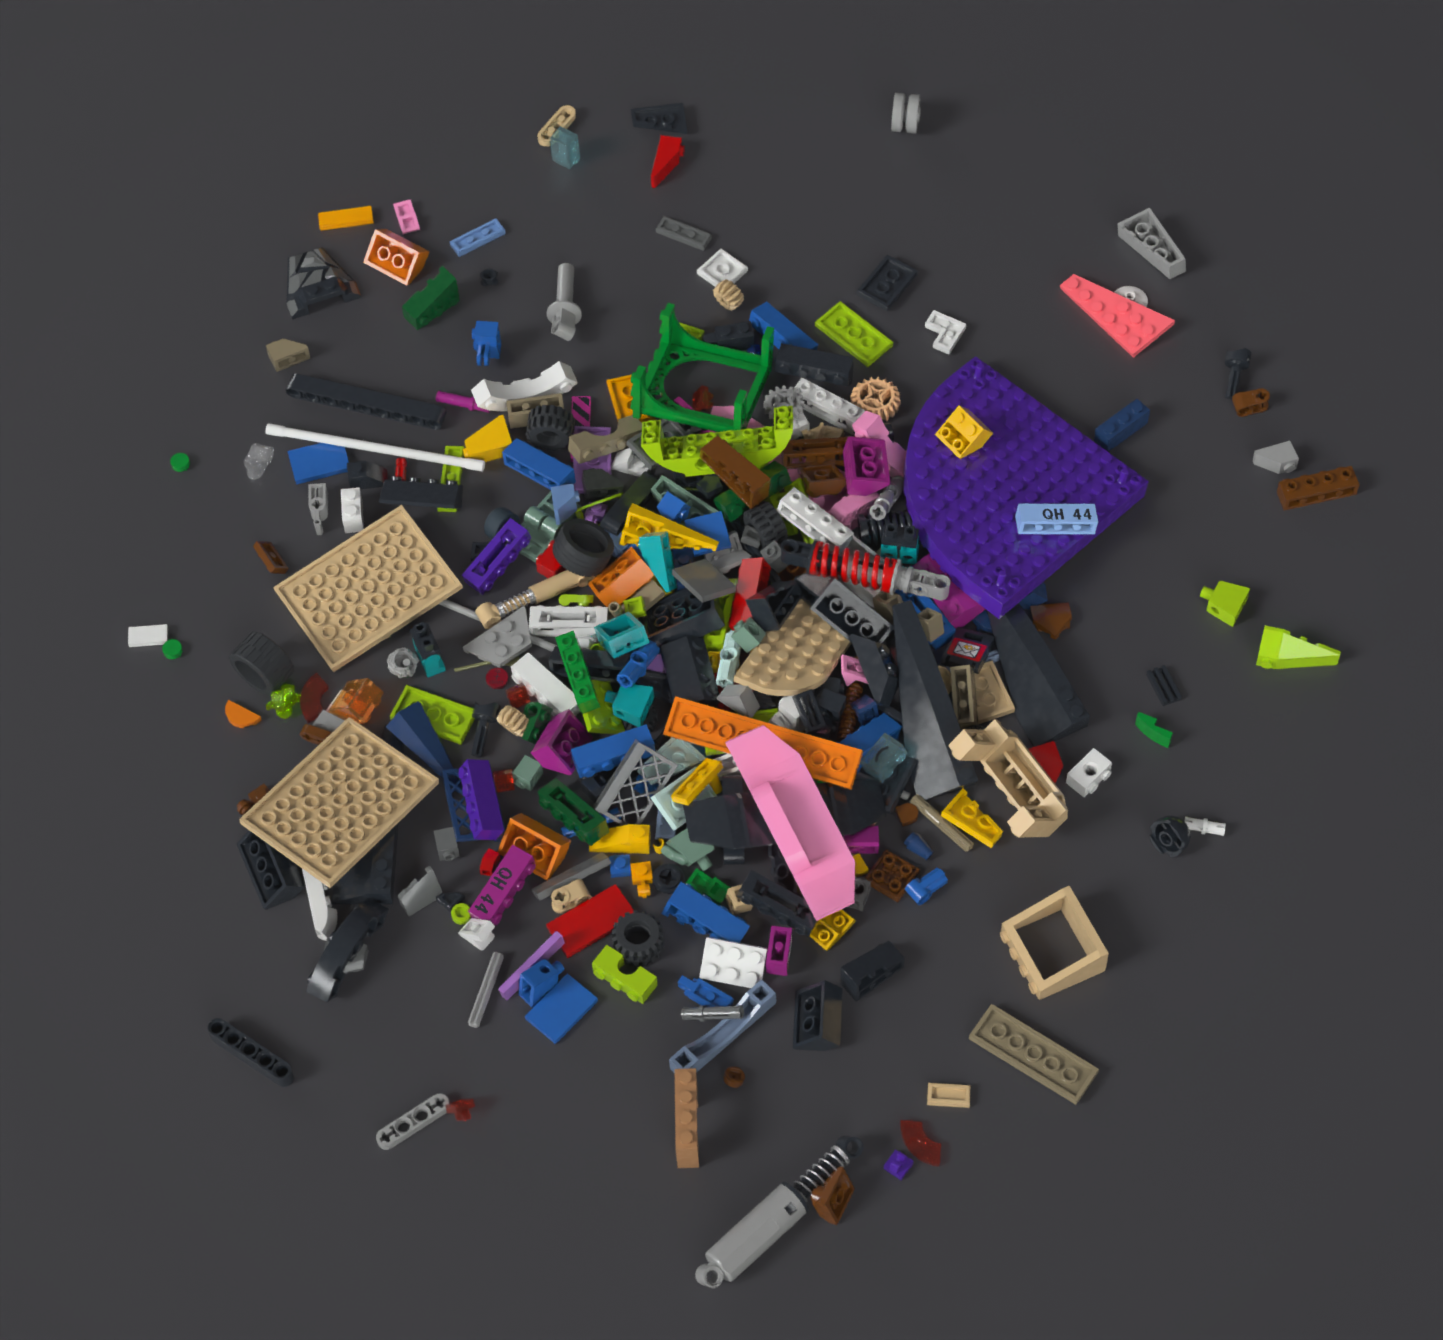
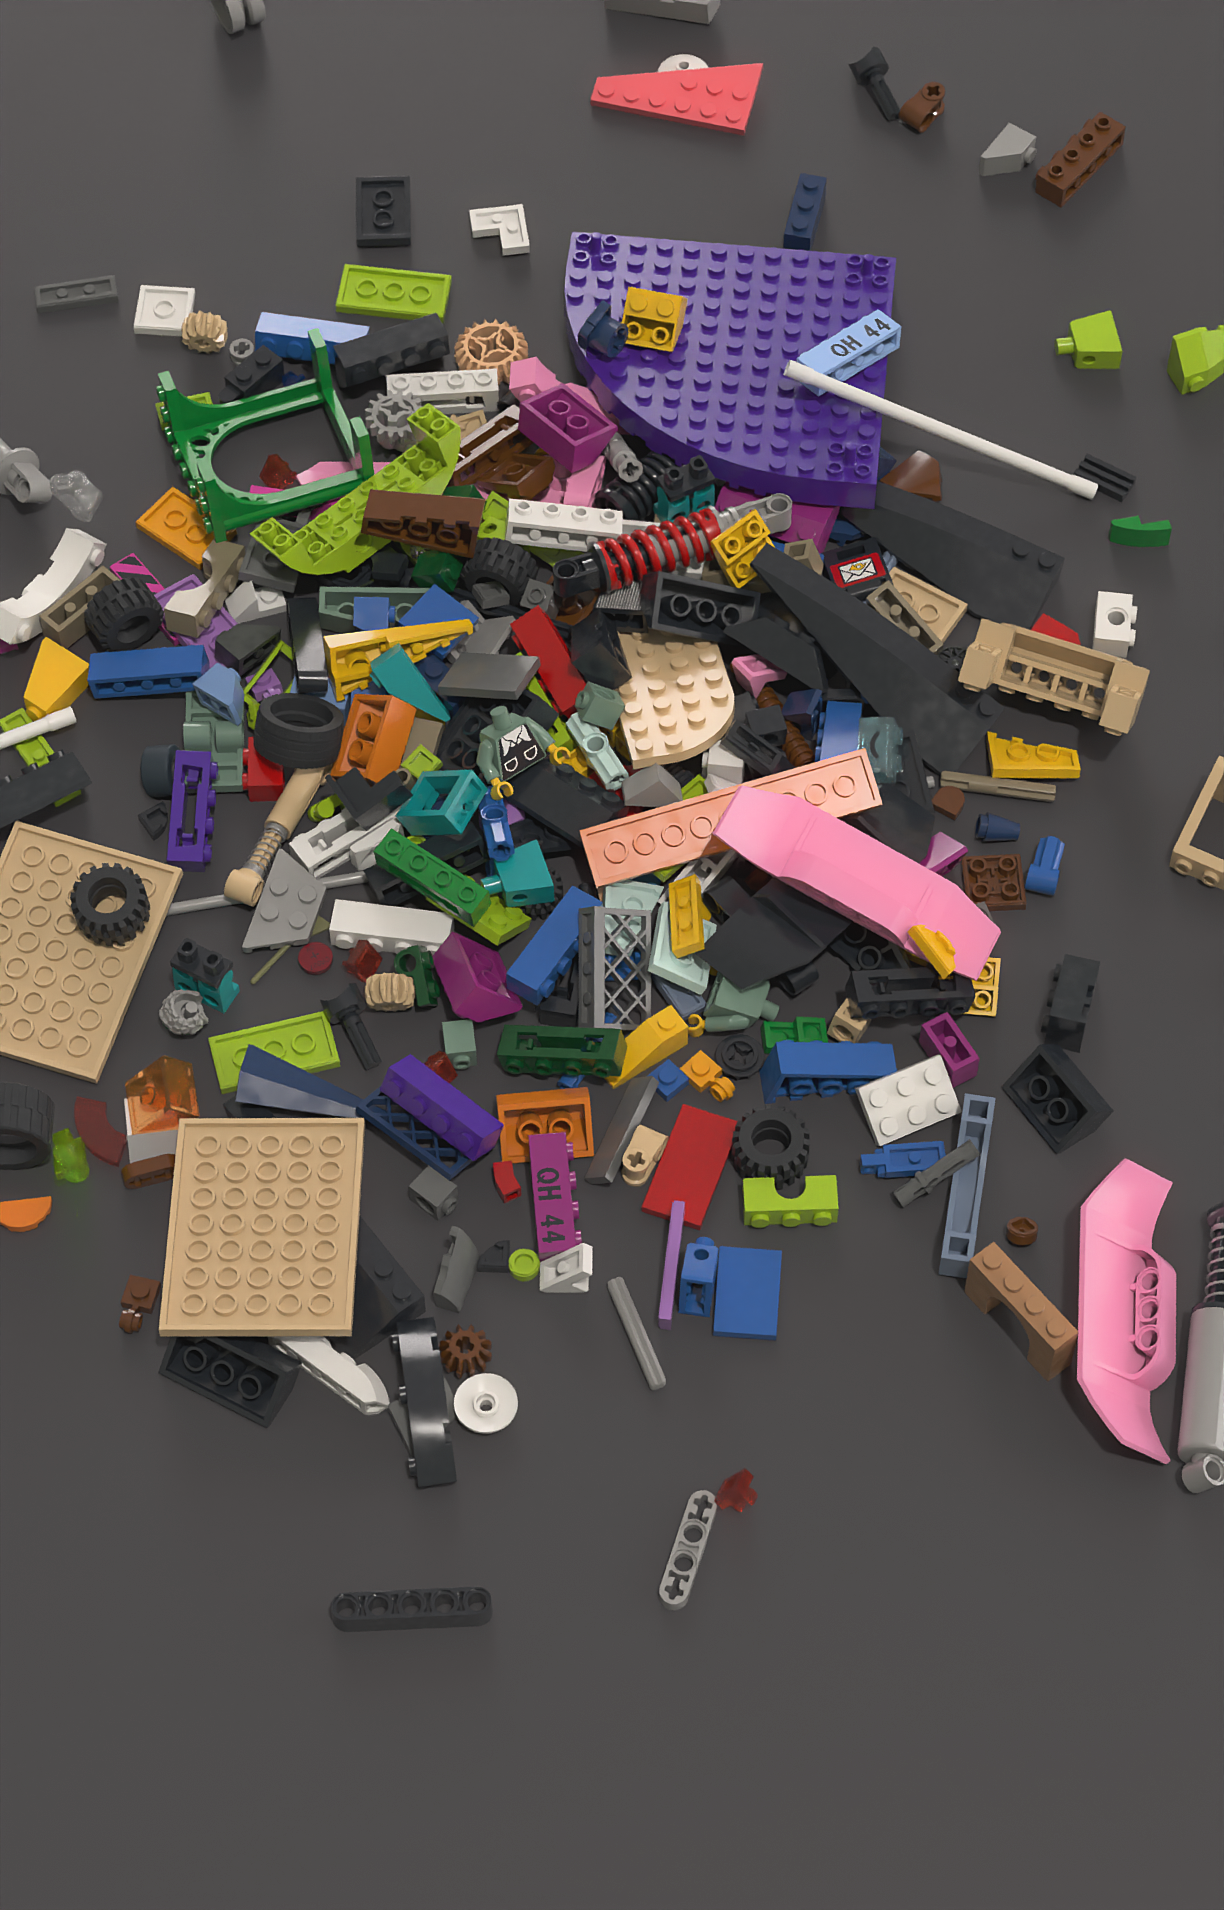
camera: 40 degrees left, 0 degrees up
(375, 964) = (484, 1390): none -> white dish
(383, 940) = (454, 1356): none -> reddish brown gear
(402, 567) = (104, 883): none -> black tyre
(582, 606) = (368, 803): none -> black panel
(587, 348) = (77, 494): none -> clear piece
(677, 626) = (511, 747): none -> torso
(741, 314) = (239, 345): none -> light grey bush
(745, 1155) = (1125, 1305): none -> bright pink piece
(806, 887) = (935, 947): none -> yellow plate
(898, 591) = (739, 546): none -> yellow slope
(926, 423) = (603, 332): none -> dark blue piece
(1012, 517) = (810, 377): none -> white piece

